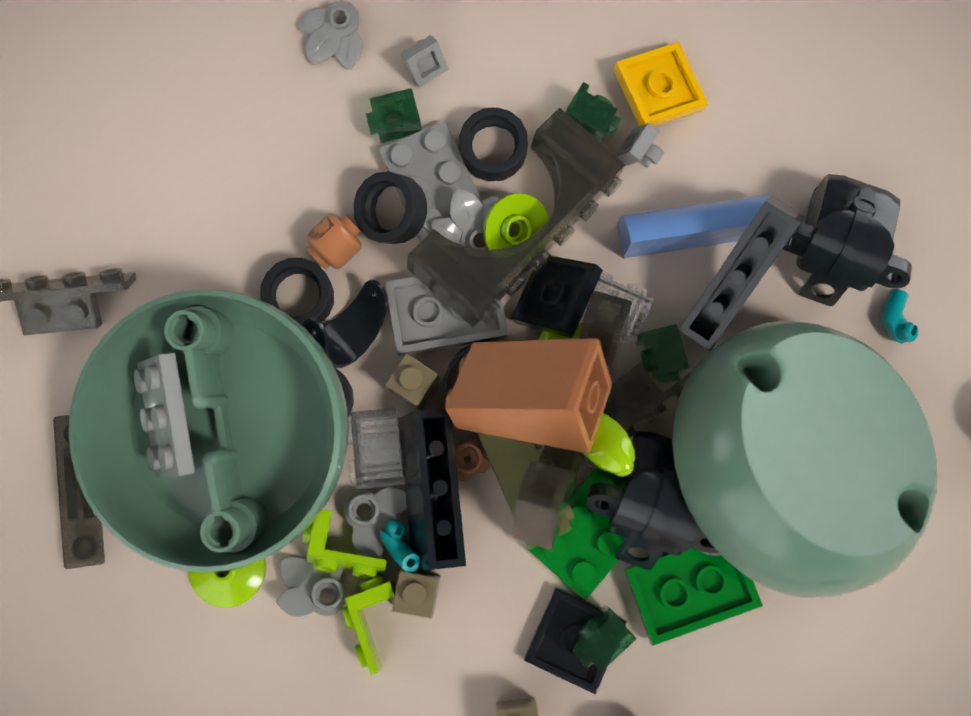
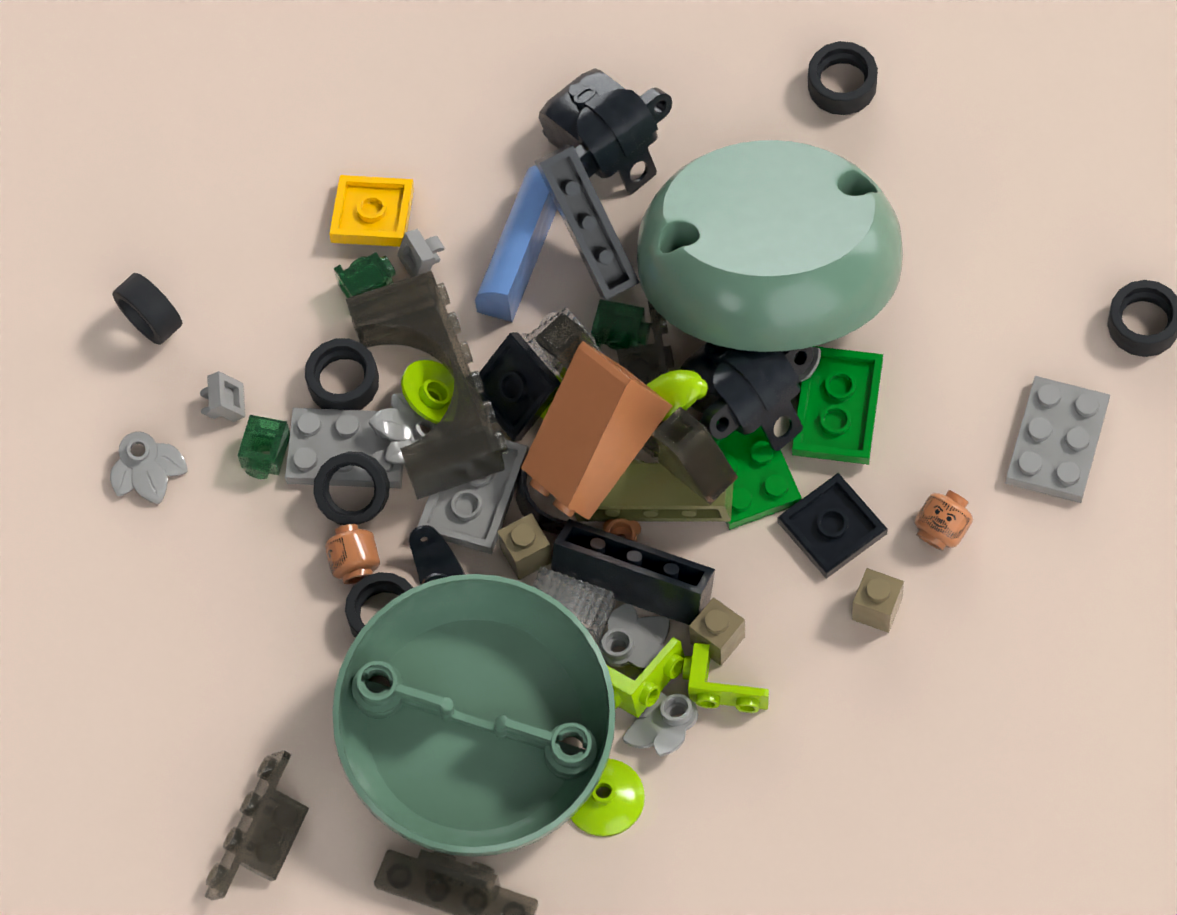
camera: 55 degrees left, 15 degrees down
(164, 416) = (438, 755): light grey plate -> none
(397, 547) = (672, 627): teal arm -> none
(602, 640) = (839, 490): clear green brick -> none
(893, 319) = (694, 129): teal arm -> none

